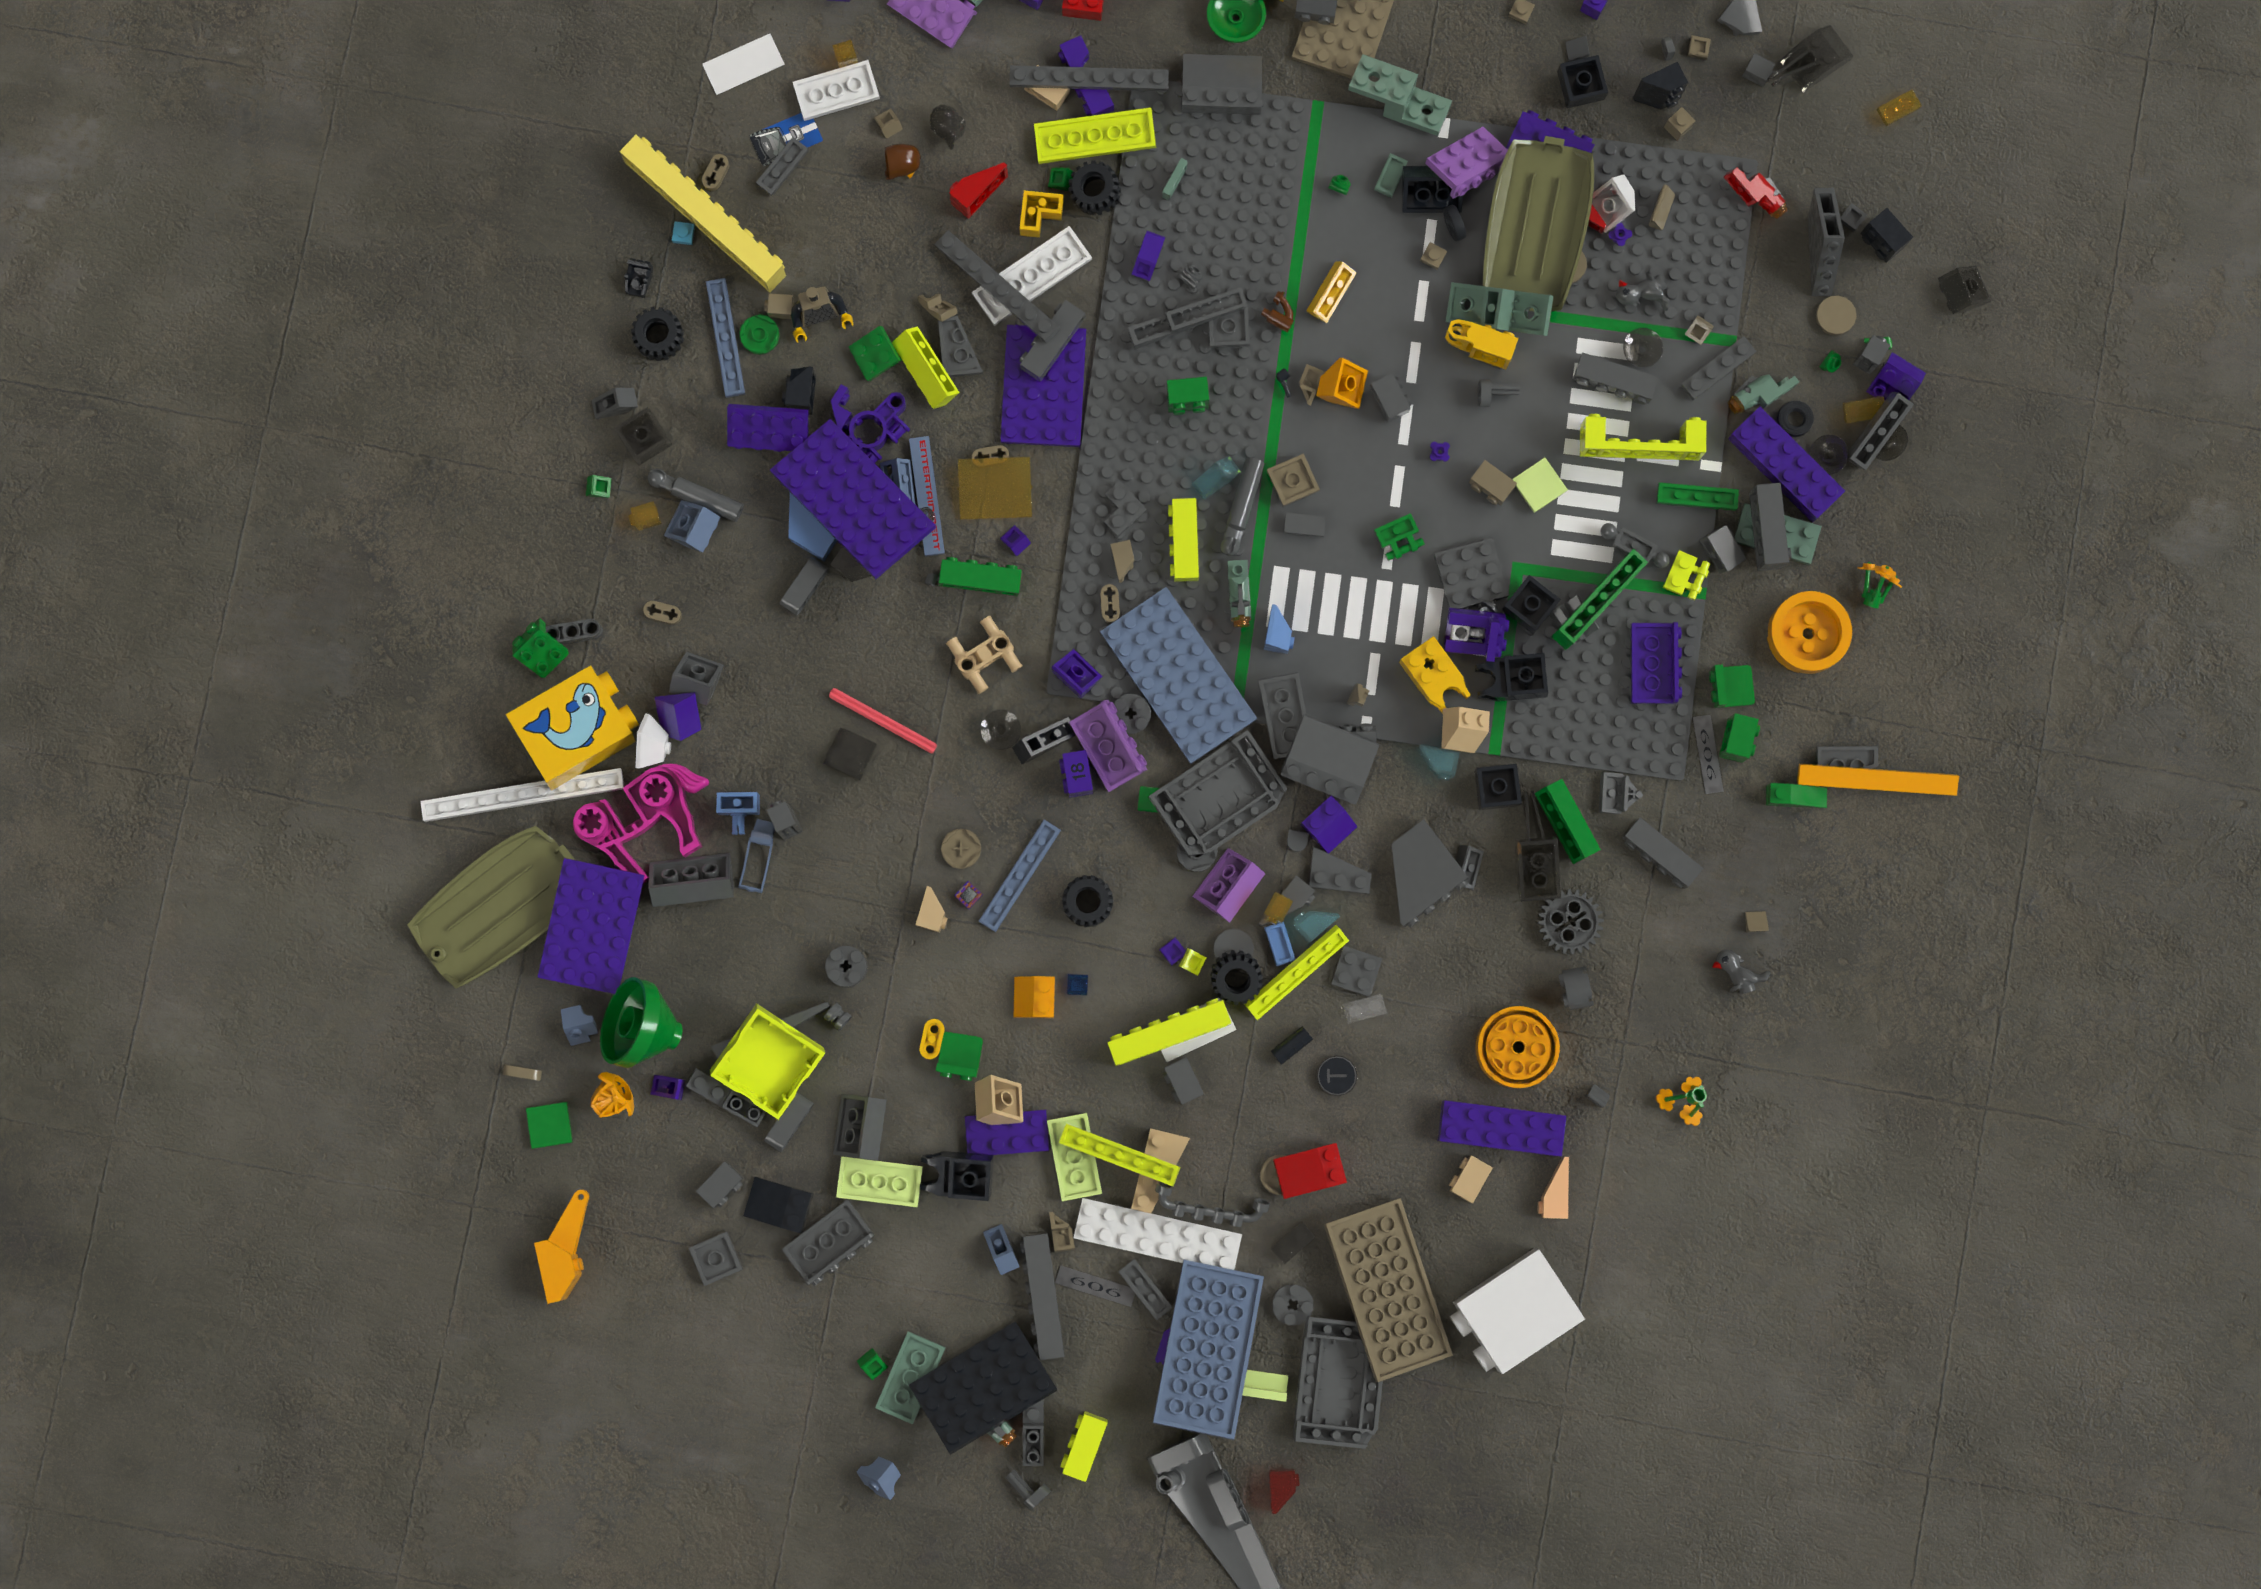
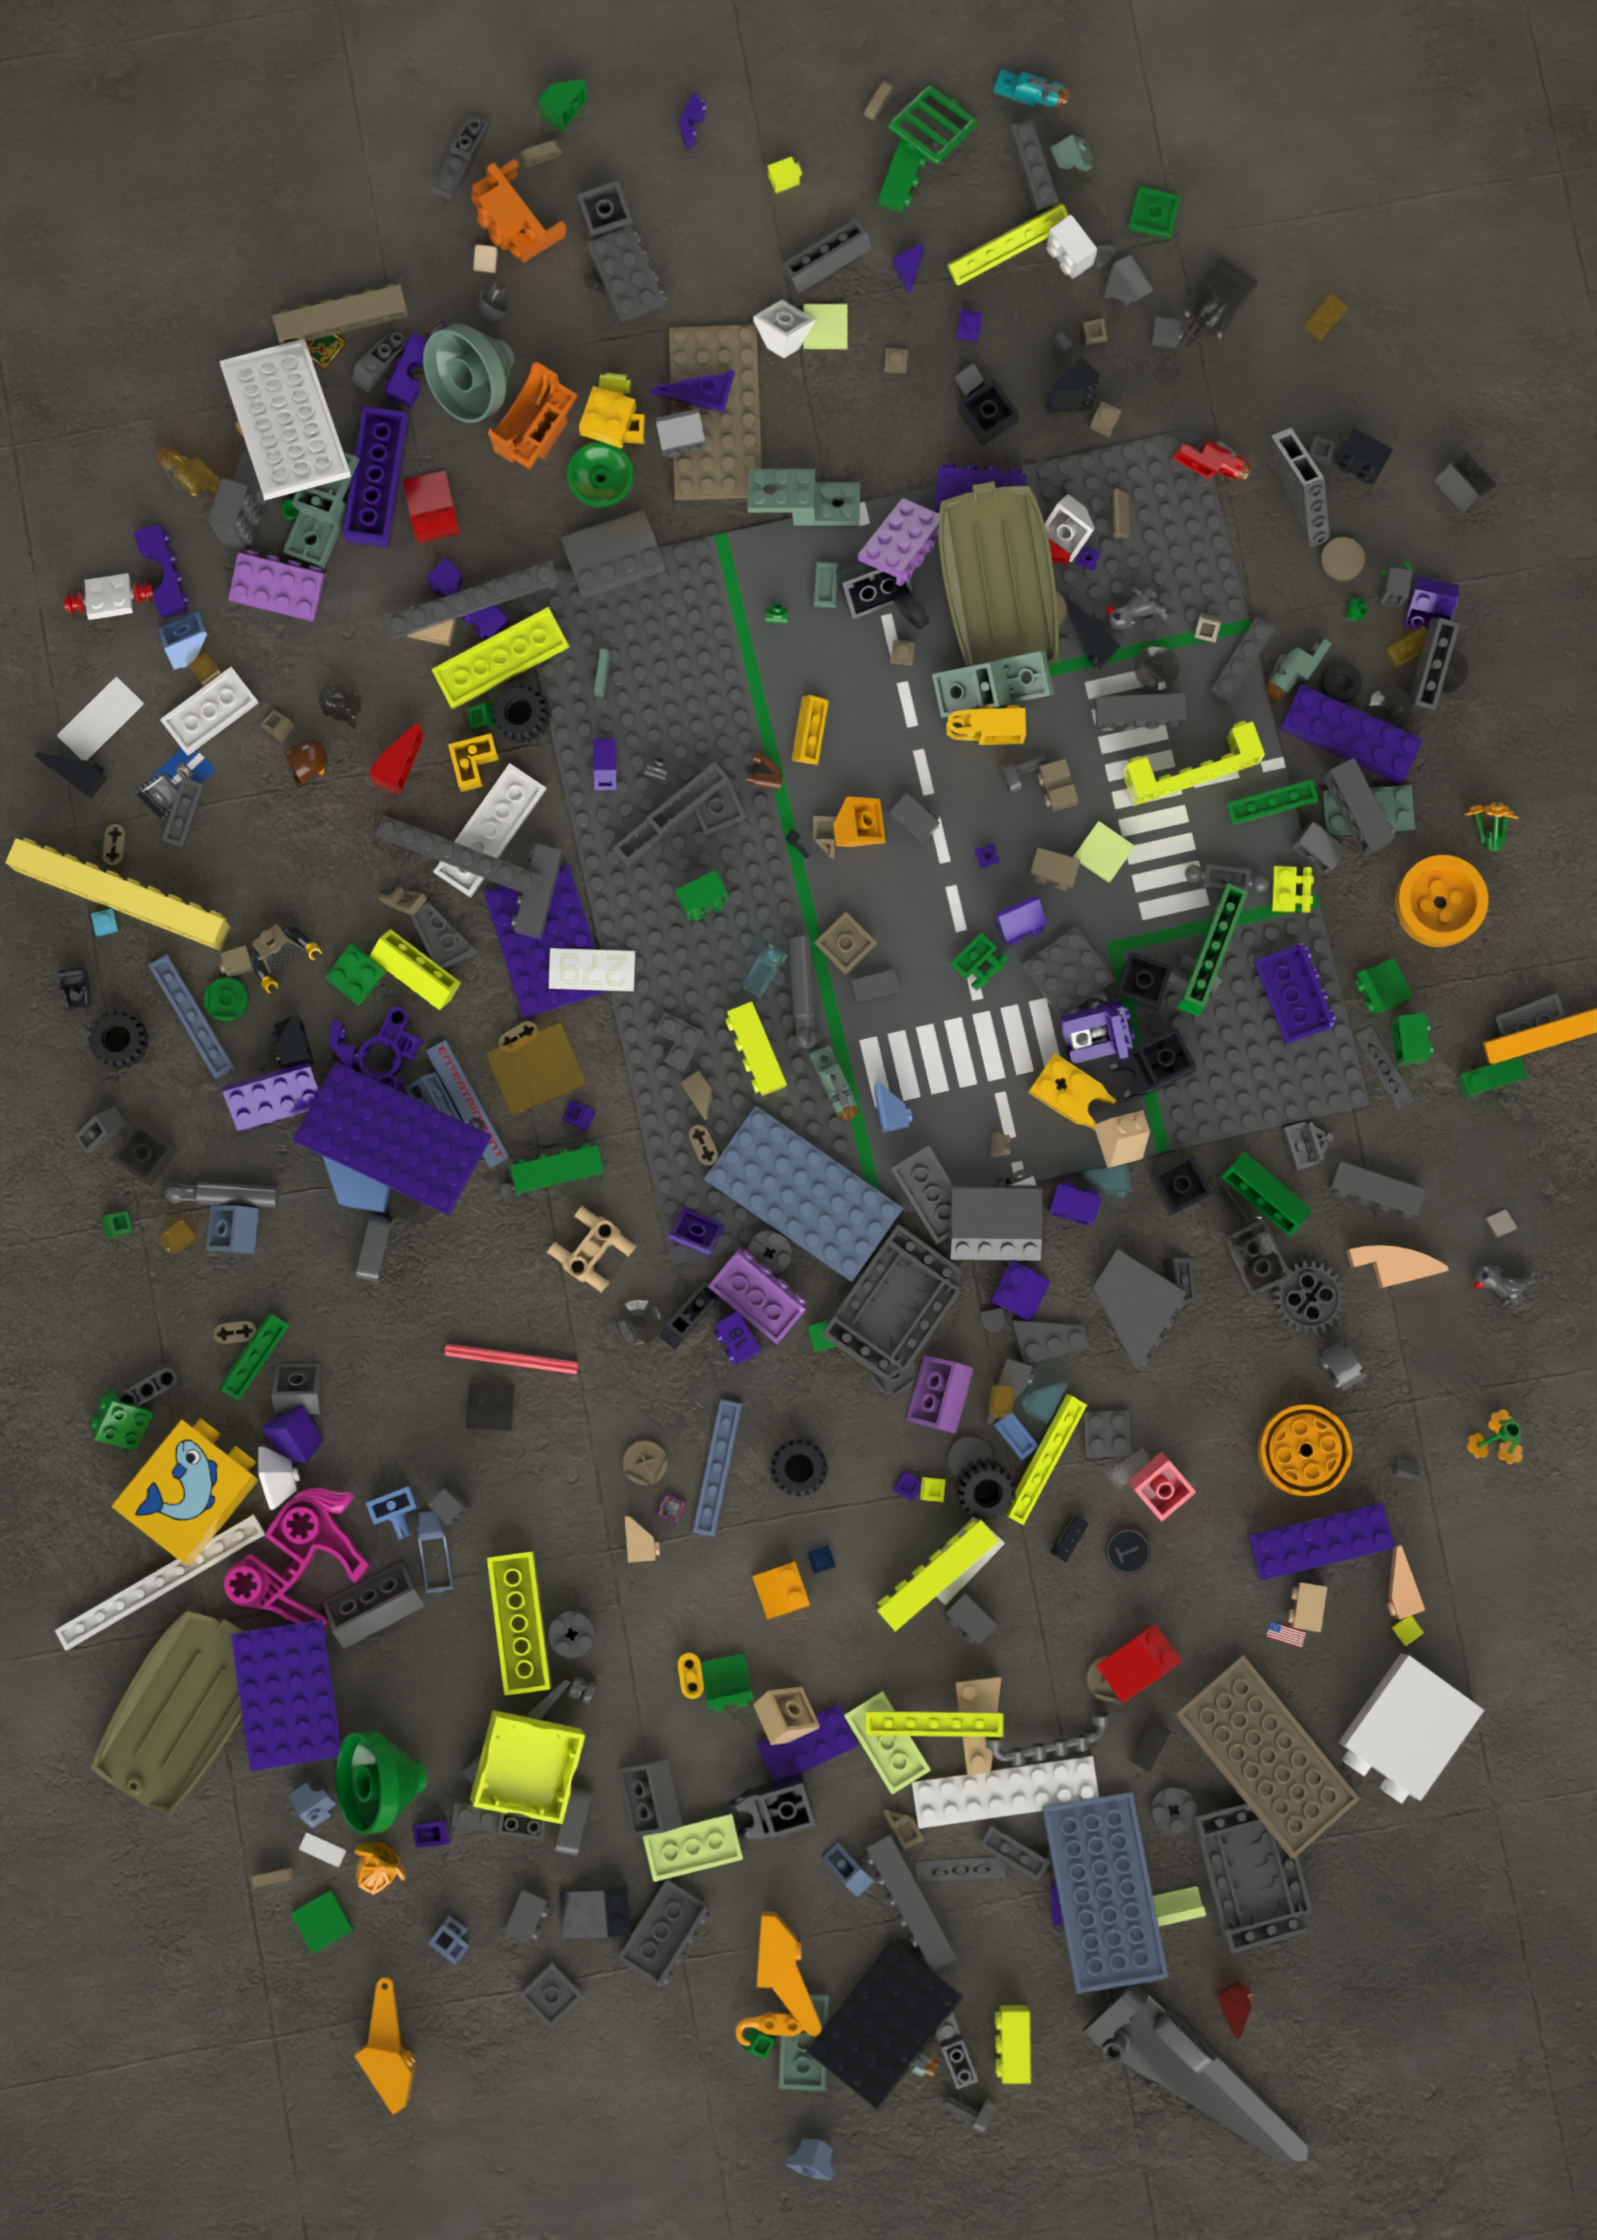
camera: 20 degrees left, 0 degrees up
(572, 1066) = (322, 1849): none -> white sticker
(647, 1181) = (448, 1940): none -> sand blue brick
(670, 637) = (253, 1356): none -> green plate
(707, 100) = (77, 772): none -> black slope
(806, 940) = (519, 1623): none -> neon yellow brick
(837, 22) = (183, 639): none -> medium blue slope
(912, 1308) = (779, 1970): none -> light orange slope
(1072, 422) = (591, 969): none -> white sticker
(1385, 1031) = (1161, 1486): none -> coral brick
(1402, 768) = (1074, 1204): none -> dark purple brick
(1443, 1195) = (1286, 1634): none -> sticker
(1447, 515) = (1020, 921): none -> dark purple slope
(1522, 415) = (1057, 786): none -> dark tan brick
(1547, 1230) = (1407, 1630): none -> neon yellow tile
(1599, 305) = (1095, 642): none -> black slope
(1654, 921) = (1395, 1264): none -> light nougat slope

